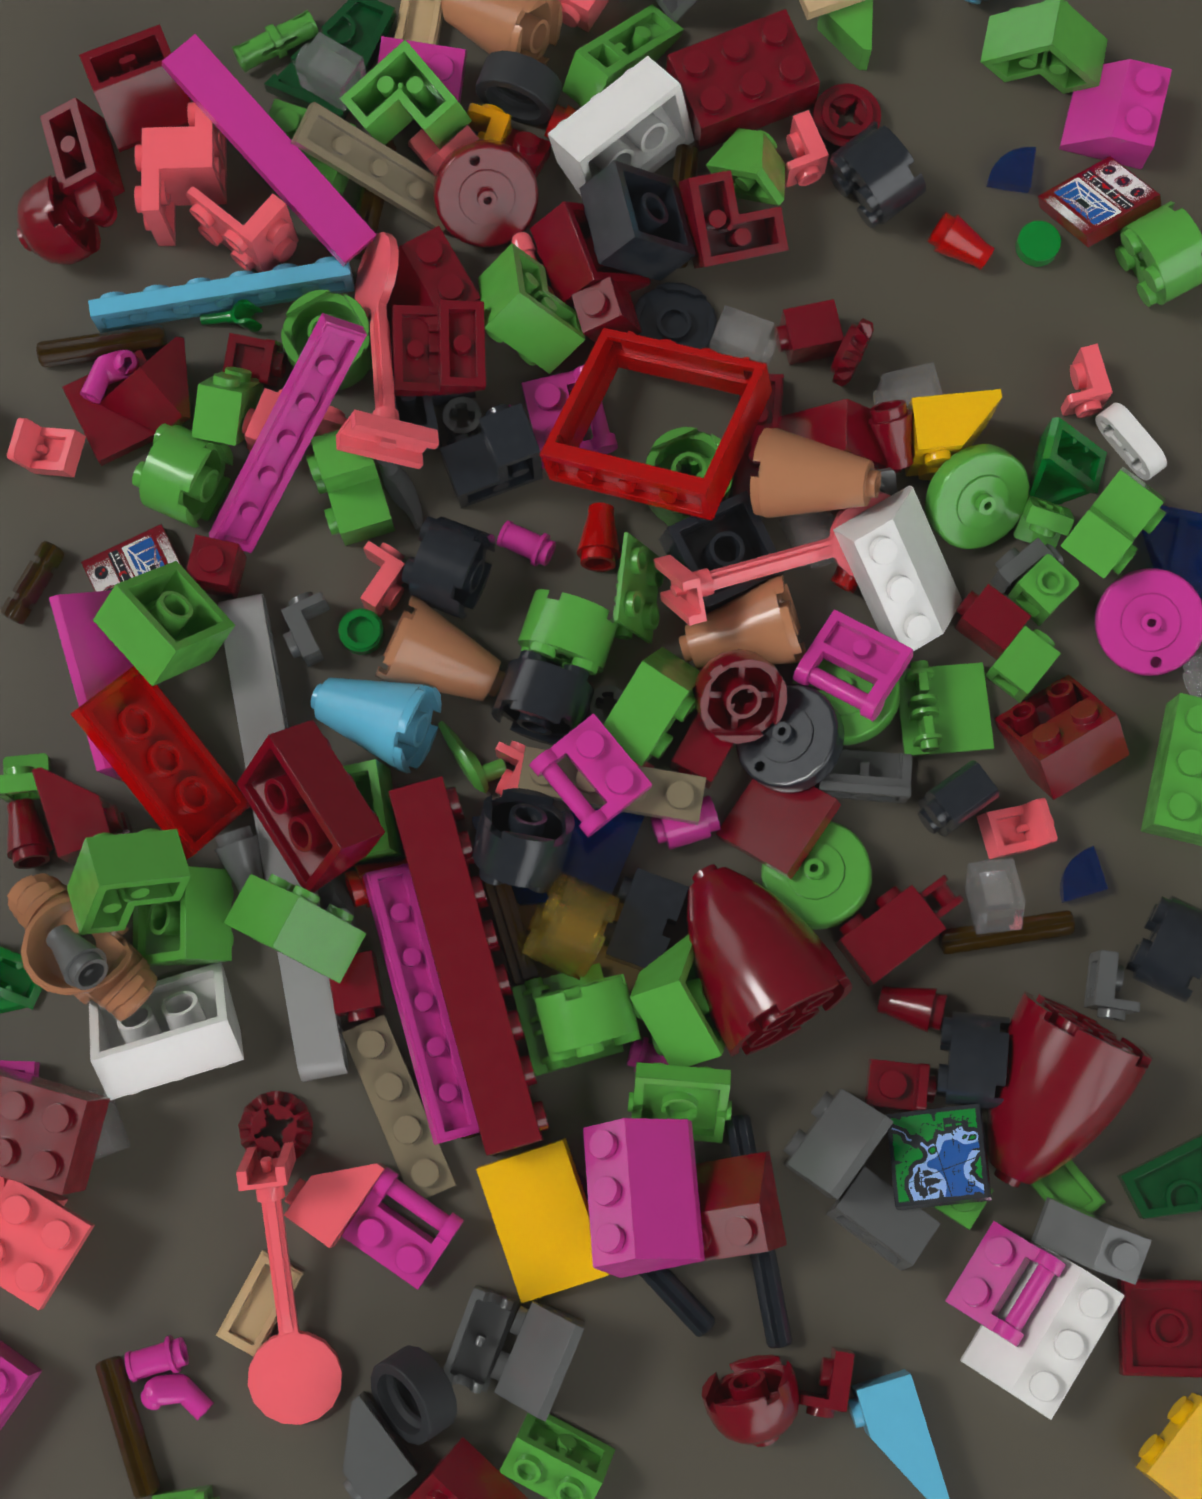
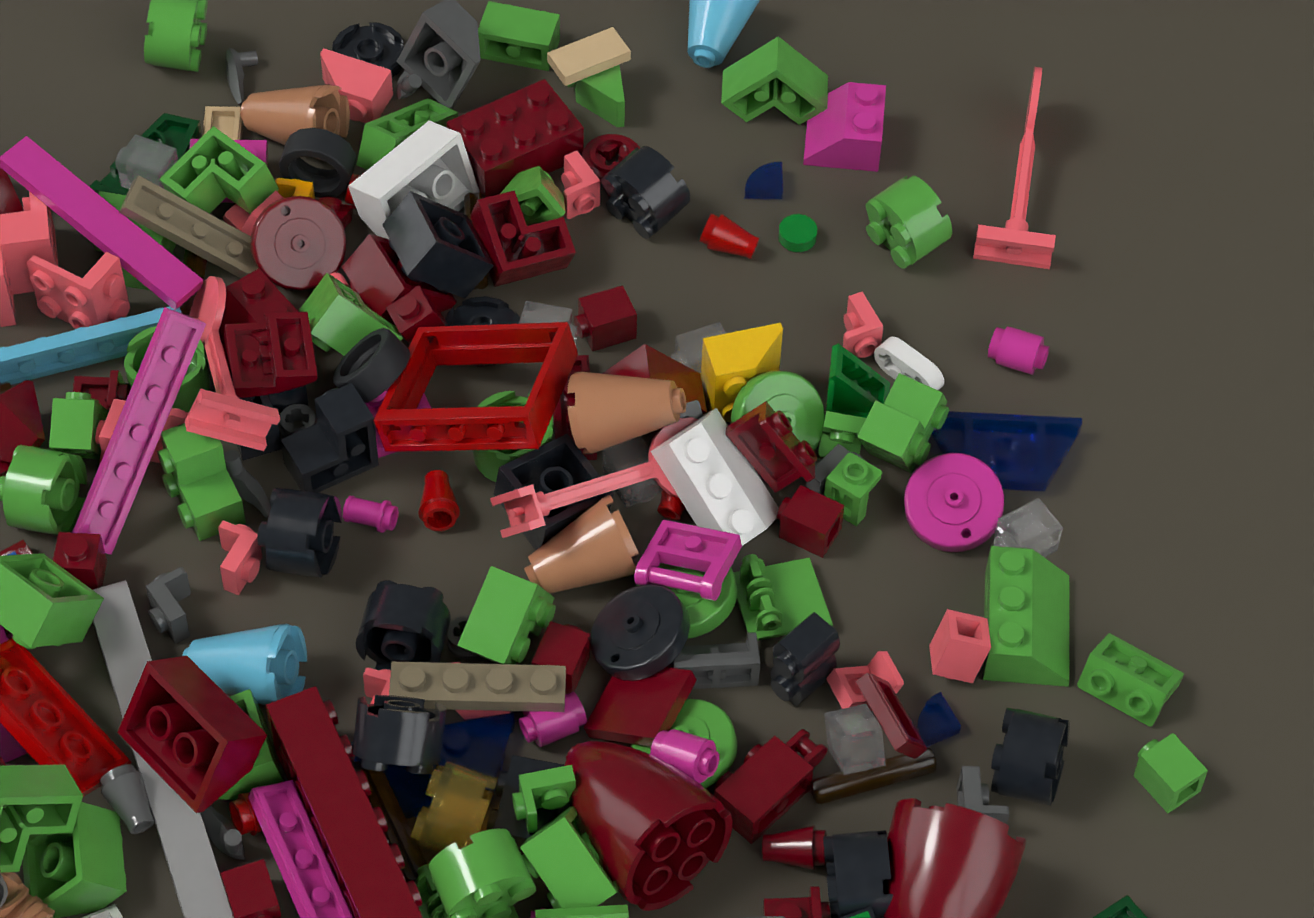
camera: 10 degrees left, 25 degrees down
(239, 314) = (85, 364): green hand -> none
(275, 41) = (97, 157): bright green pin -> none
(294, 925) = (190, 830): bright green brick -> none
(361, 631) = (223, 606): green tile -> none
(439, 654) = (297, 599): nougat cone -> none
(469, 763) = (341, 701): bright green bar -> none
(546, 376) = (373, 364): none -> black tyre
(568, 631) = (422, 560): bright green brick -> none
(602, 765) = (463, 659): dark pink plate -> none
(637, 591) = (478, 533): bright green hinge -> none
(668, 924) = (542, 789): none -> bright green bracket
(739, 696) = (587, 594): dark red cylinder -> none
(815, 902) = (687, 752): none -> dark pink brick
(851, 352) = (645, 322): dark red gear -> none
(893, 431) = (692, 371): dark red cone -> none
(966, 539) = (772, 447): none -> dark red bracket
(1023, 663) = (845, 551): bright green brick -> none
(1037, 880) = (891, 715): none -> dark red tile
(1063, 736) = (894, 603): dark red slope -> none
(1099, 201) = (843, 191): tile -> none
(1124, 803) = (963, 654): none -> coral brick

